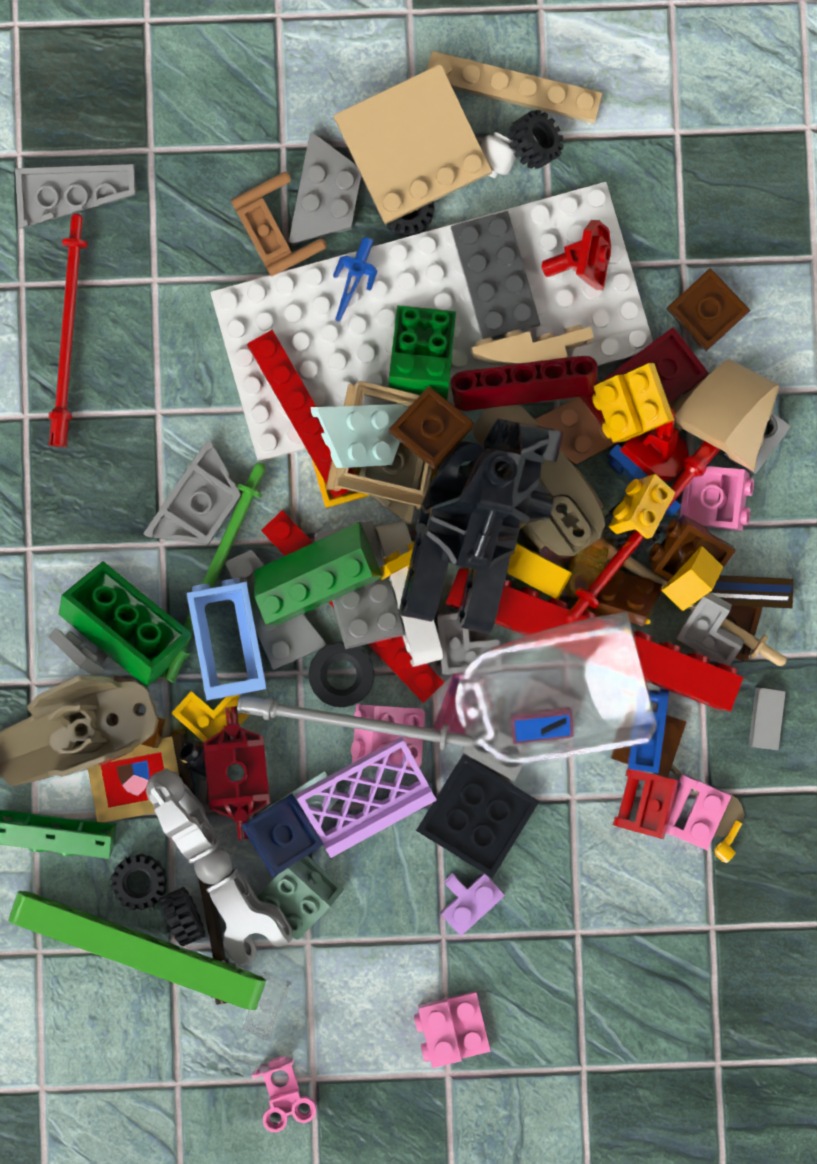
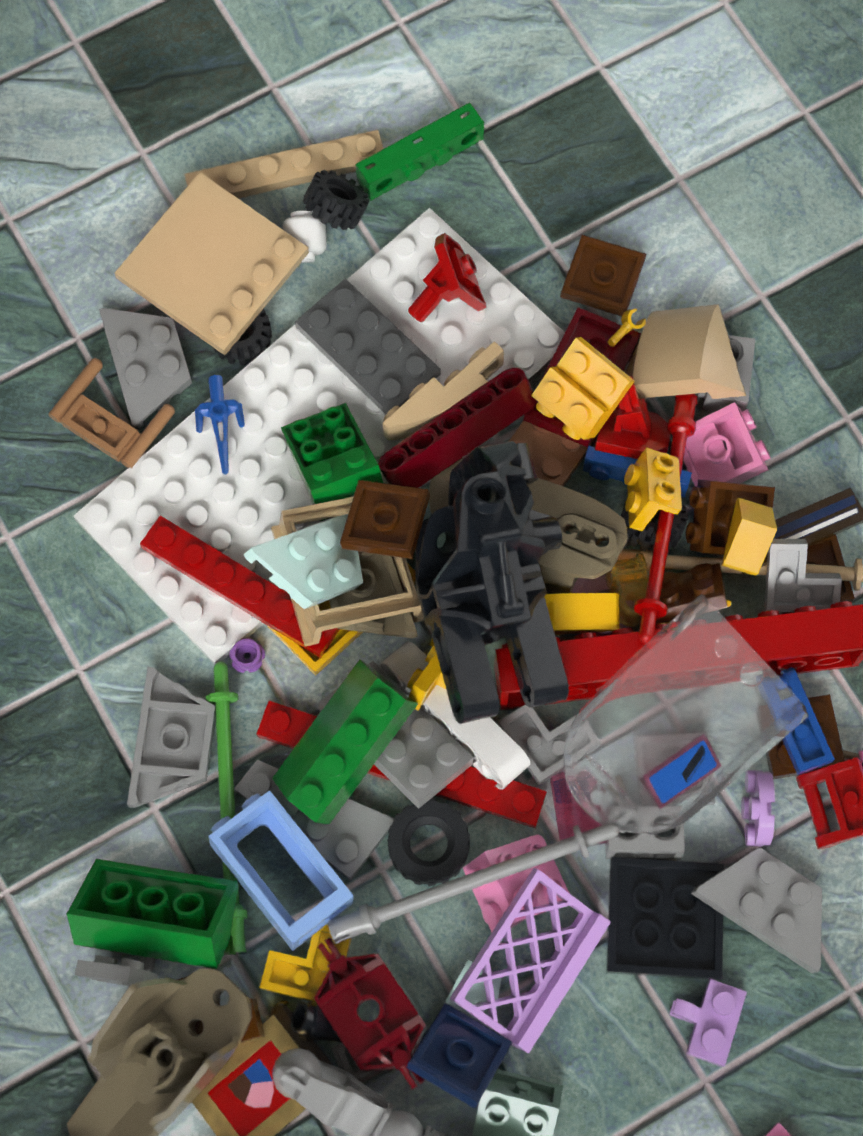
camera: 20 degrees left, 15 degrees down
(276, 464) = (240, 649): none -> medium lavender plate
(555, 845) = (770, 904): none -> light grey wing
(585, 775) = (758, 808): none -> lavender plate
(611, 133) = (408, 161): none -> green piece
(701, 362) = (626, 327): none -> yellow hand

